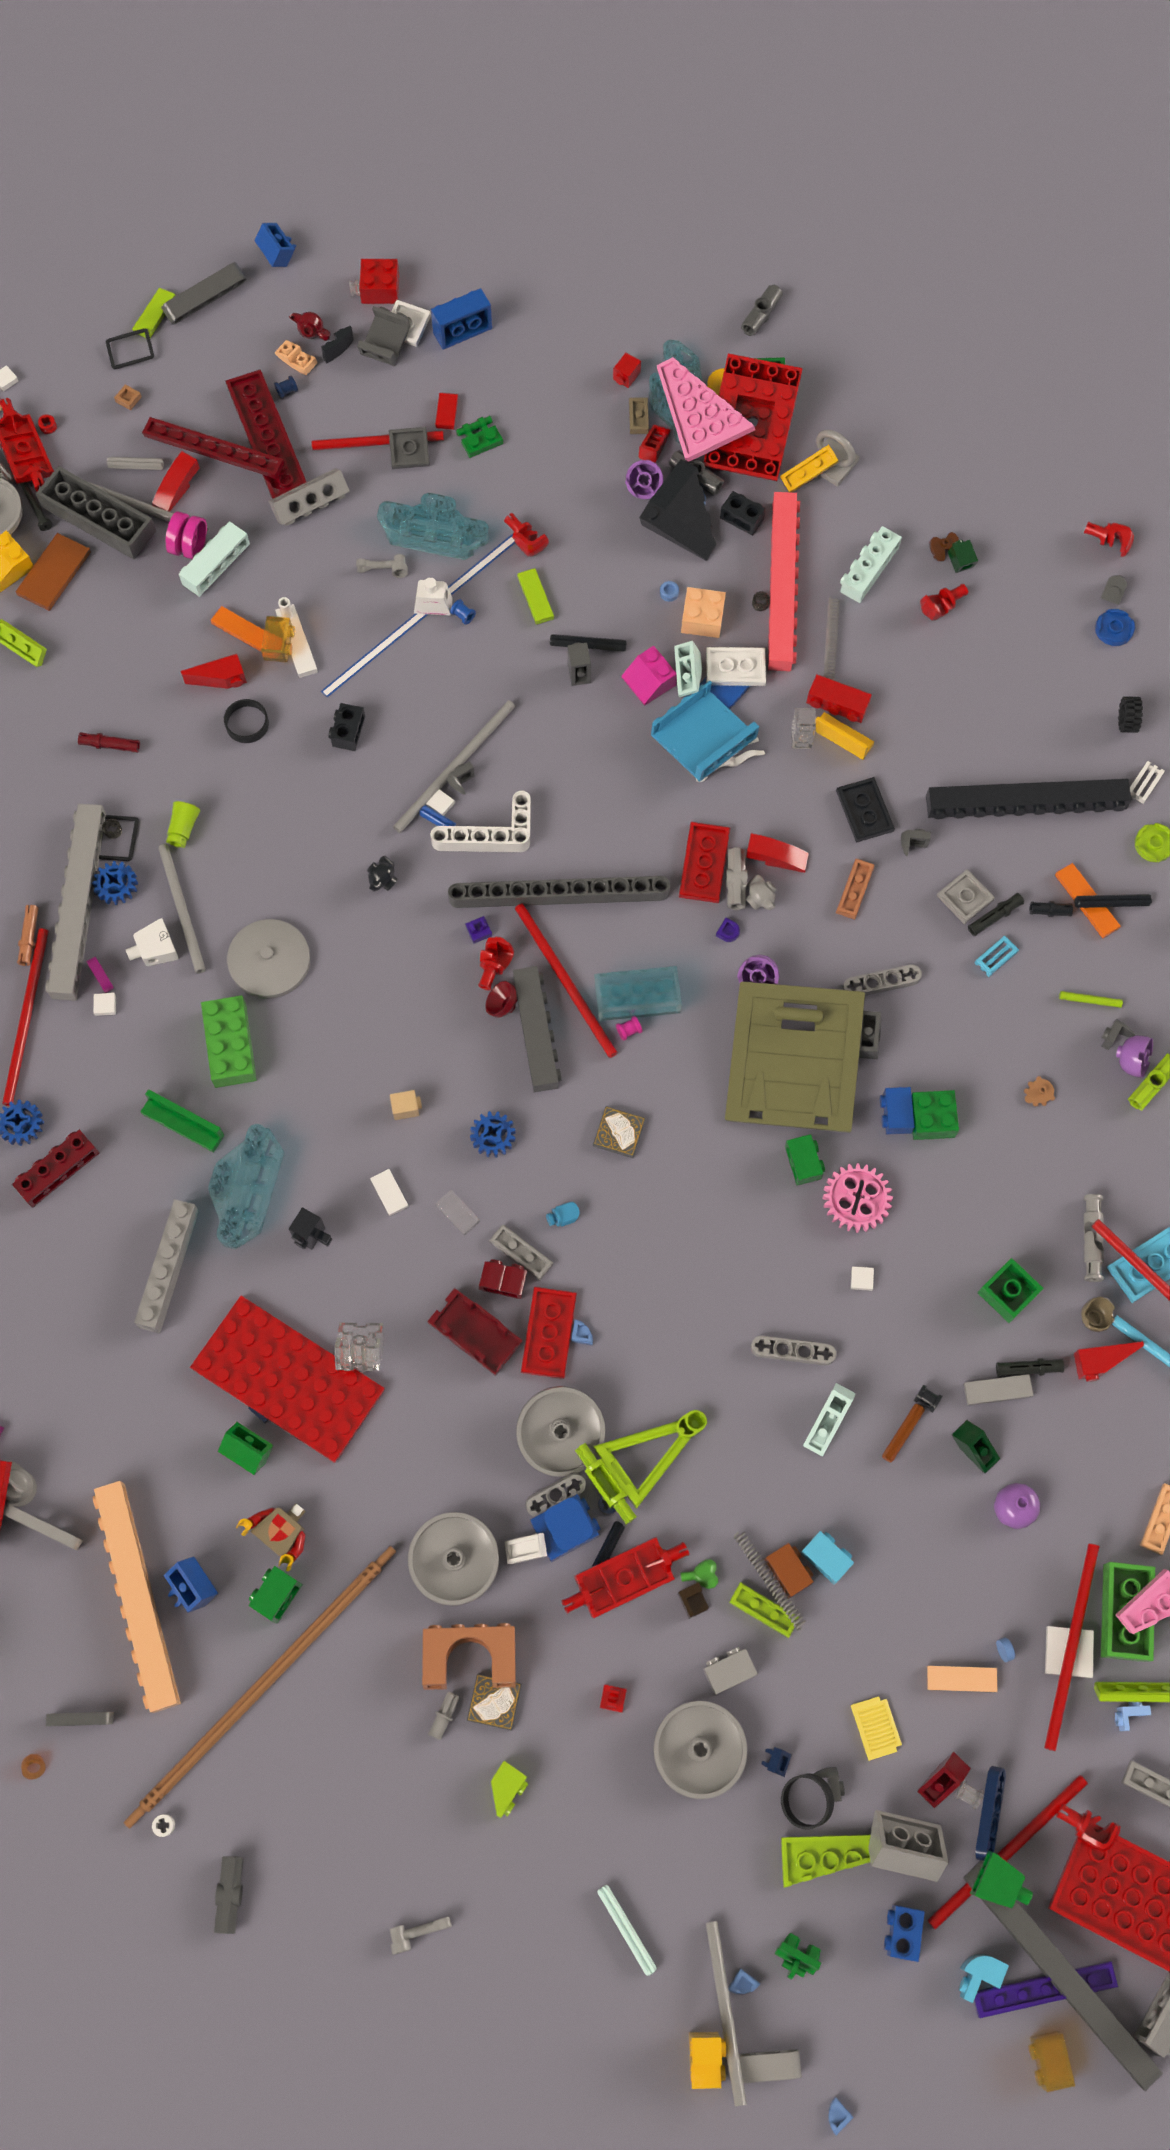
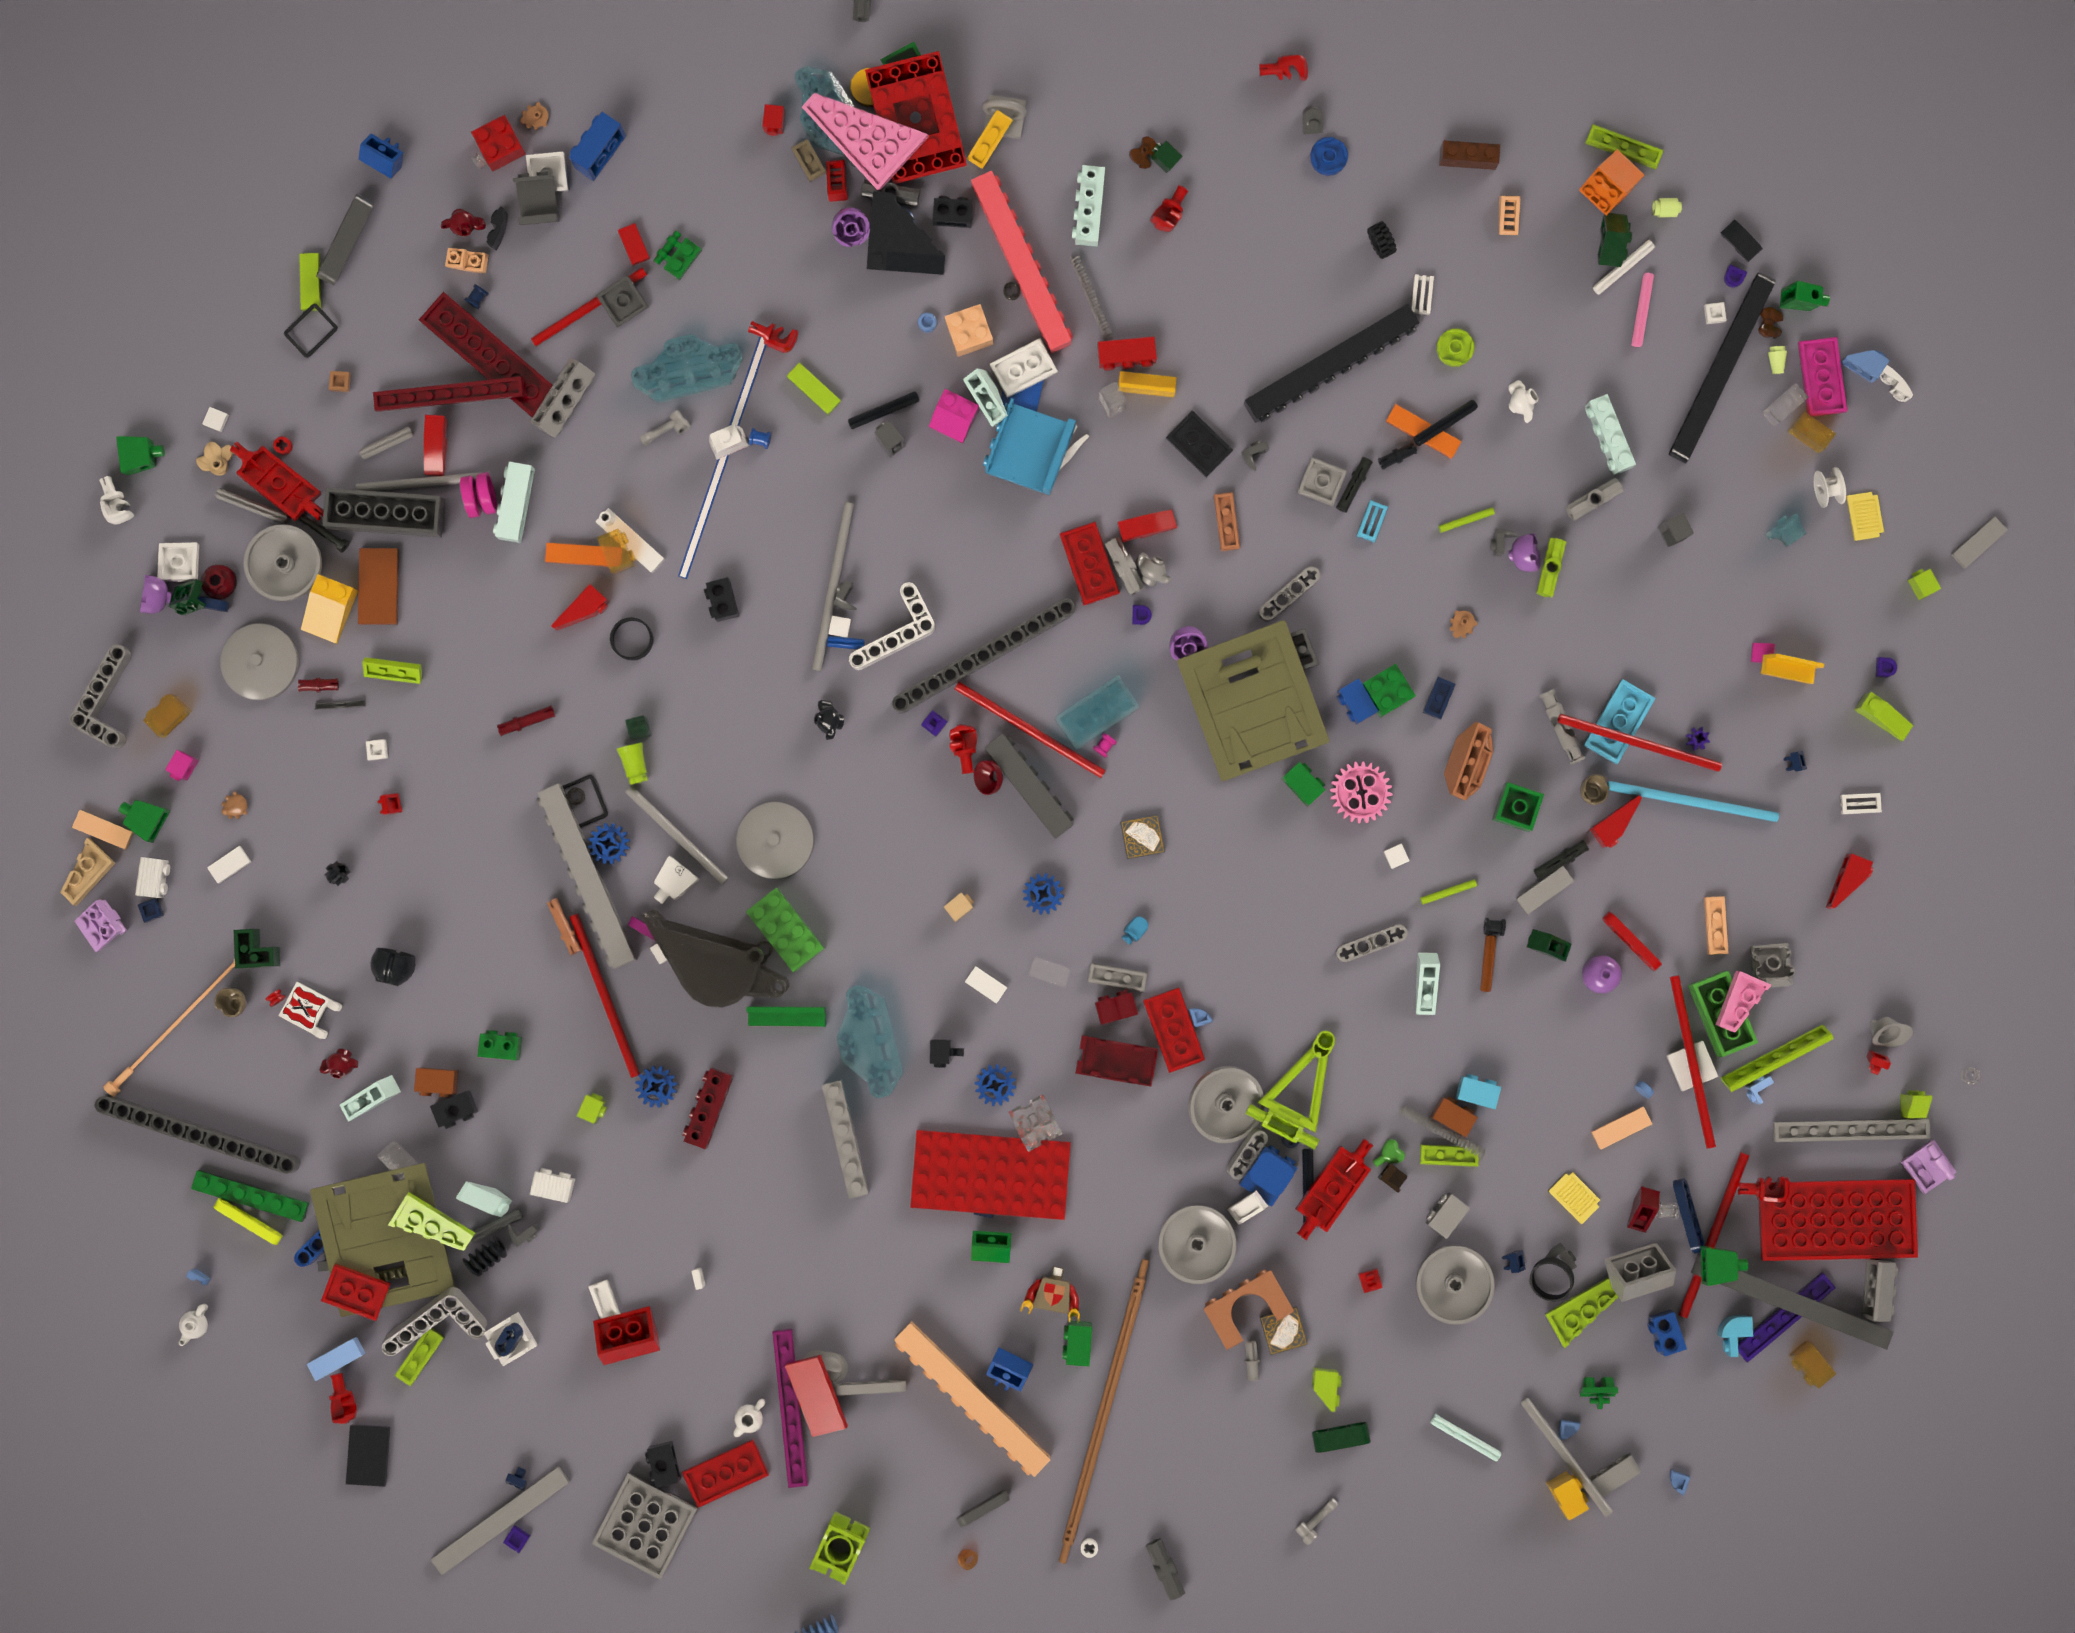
camera: 25 degrees left, 15 degrees up
(139, 1033) = (714, 966): none -> clear smoke piece
(204, 796) = (638, 727): none -> clear green brick
(333, 1289) = (992, 1075): none -> blue gear
(423, 278) = (535, 116): none -> medium nougat piece
(493, 1852) = (1341, 1437): none -> dark green beam
(896, 1340) = (1447, 892): none -> lime bar
(981, 1148) = (1439, 698): none -> dark blue plate
(983, 1221) = (1469, 761): none -> nougat wedge
(1065, 1487) = (1631, 941): none -> red beam

